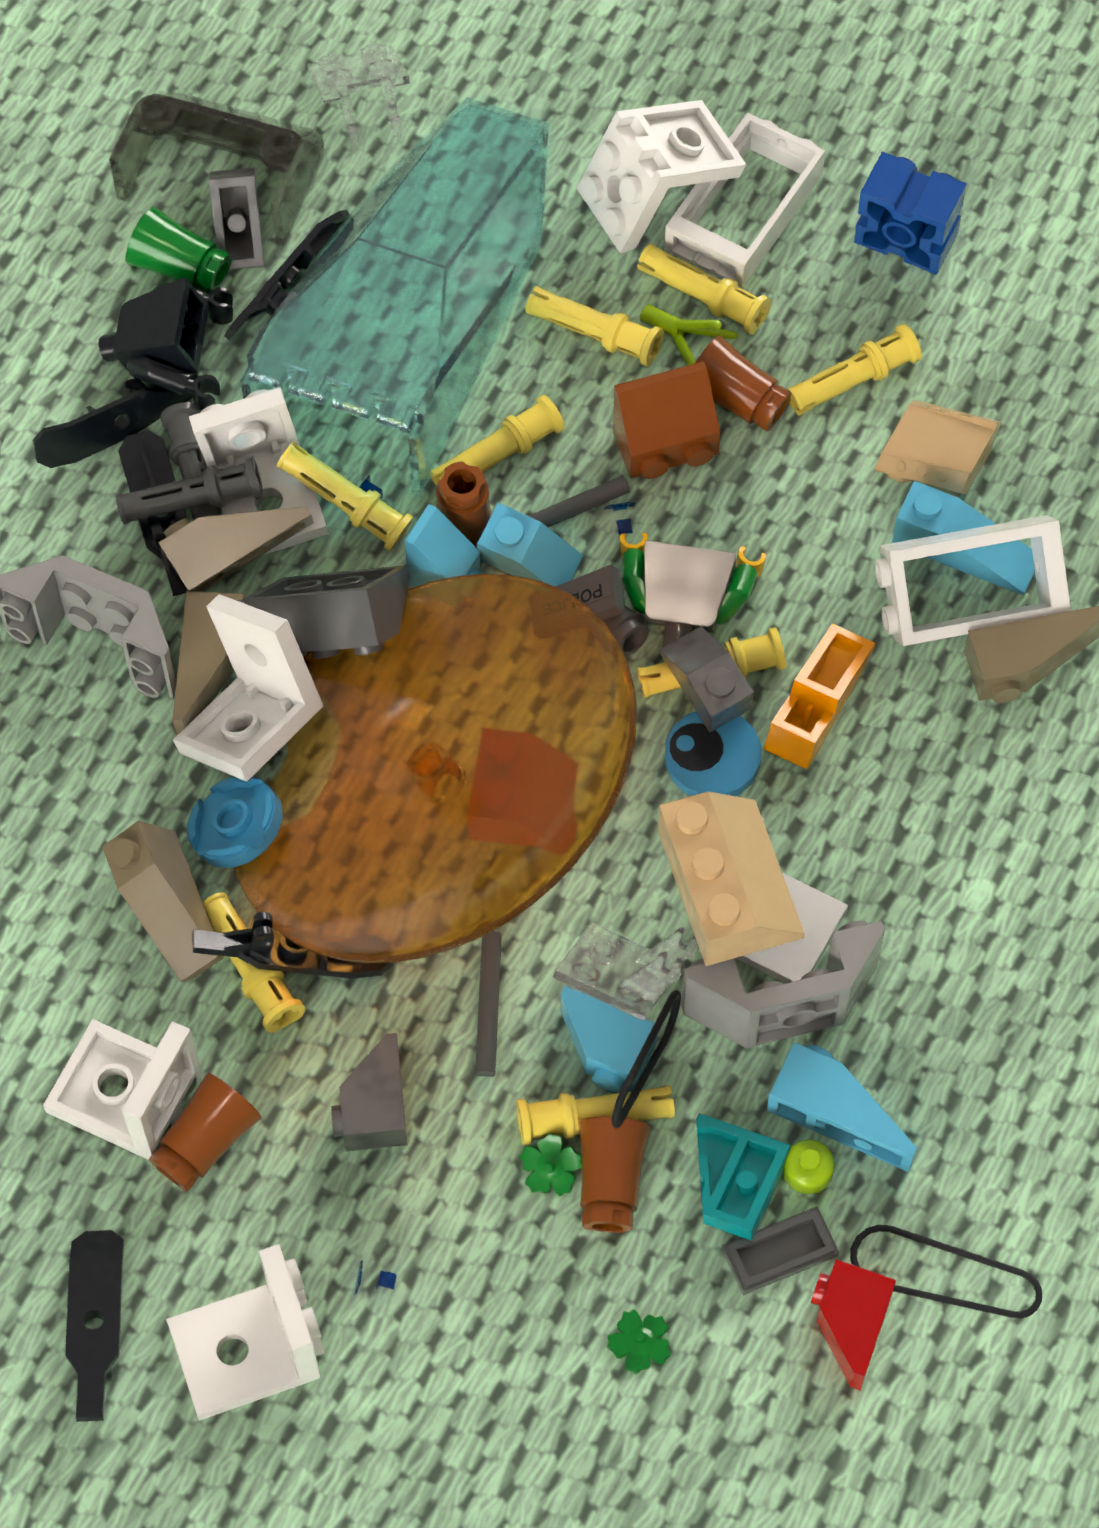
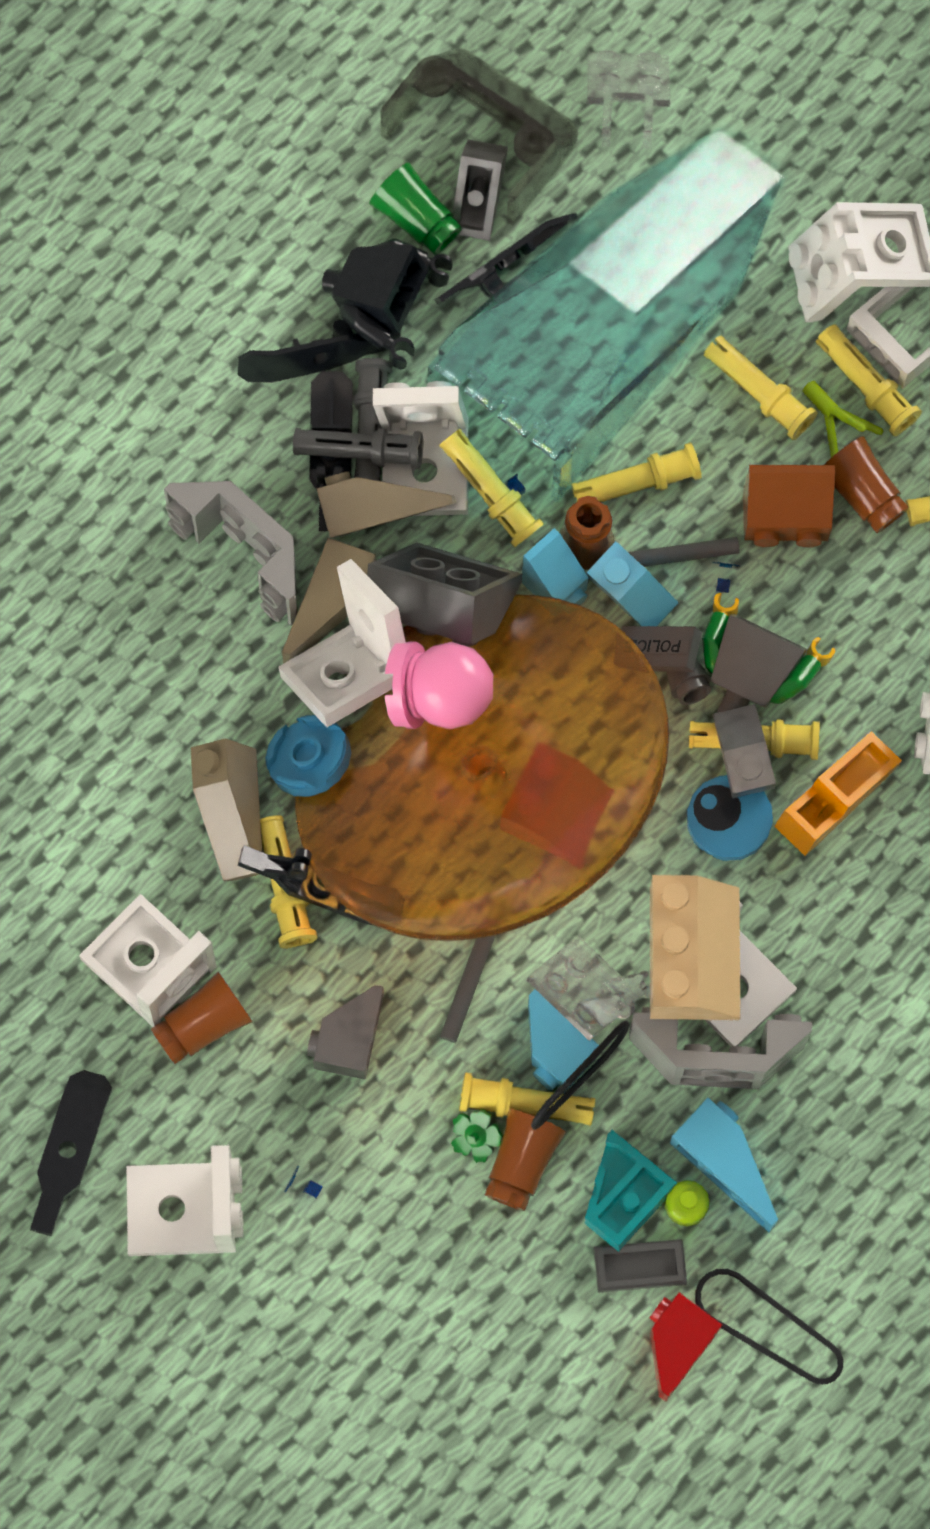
camera: 15 degrees right, 10 degrees up
(360, 693) = (442, 685): none -> bright pink tile
(640, 1341) = (501, 1304): green plant -> none

